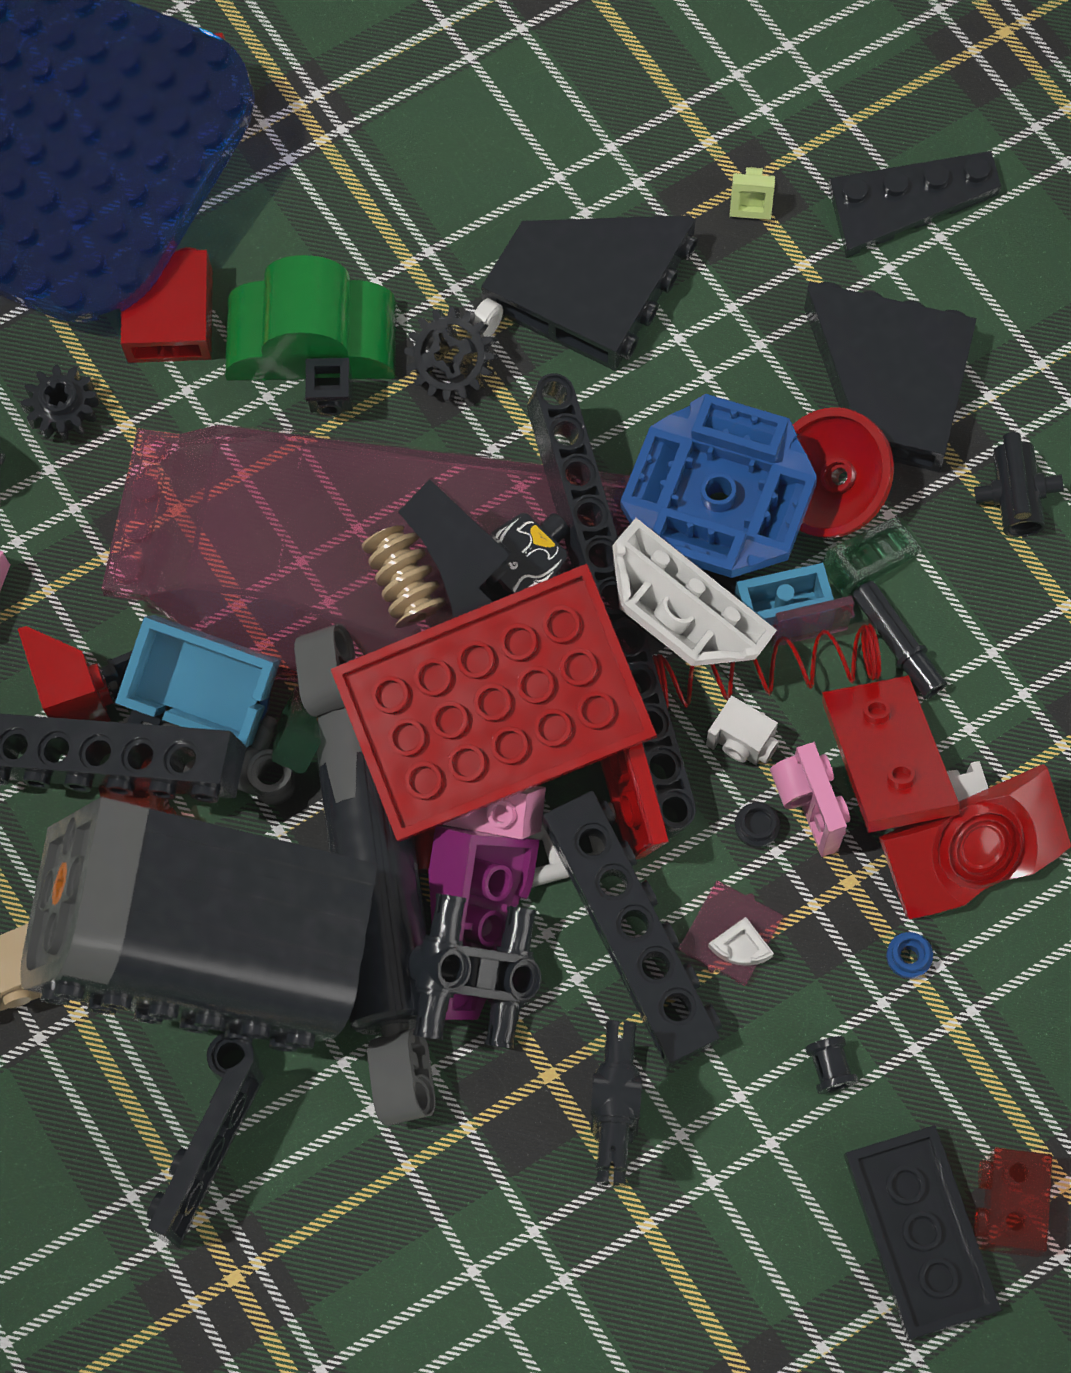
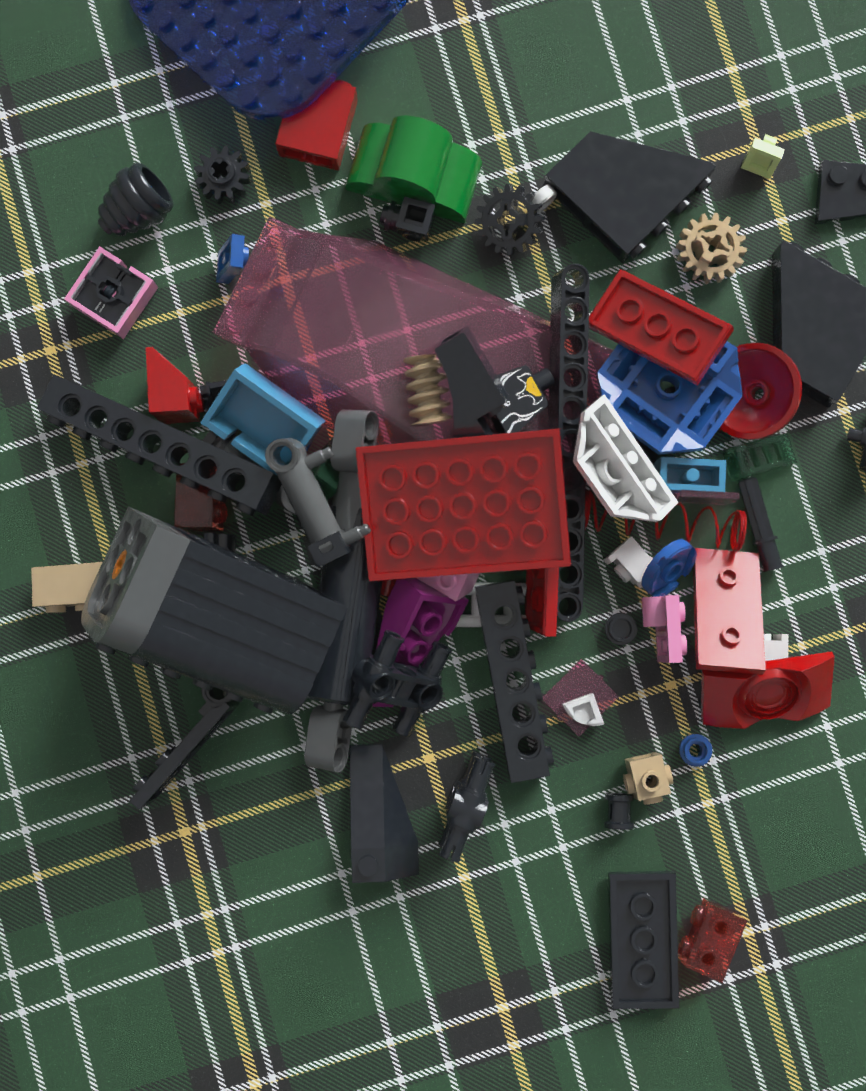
camera: 10 degrees right, 15 degrees up
(100, 497) = (231, 258): none -> blue plate
(288, 757) = (309, 502): none -> dark grey piece
(294, 393) = (390, 216): none -> black plate
(509, 1185) = (381, 830): none -> black wedge
(681, 420) = (659, 326): none -> red plate
(725, 337) = (698, 241): none -> tan gear
(793, 718) = (667, 567): none -> blue tile
(857, 990) = (639, 769): none -> tan brick

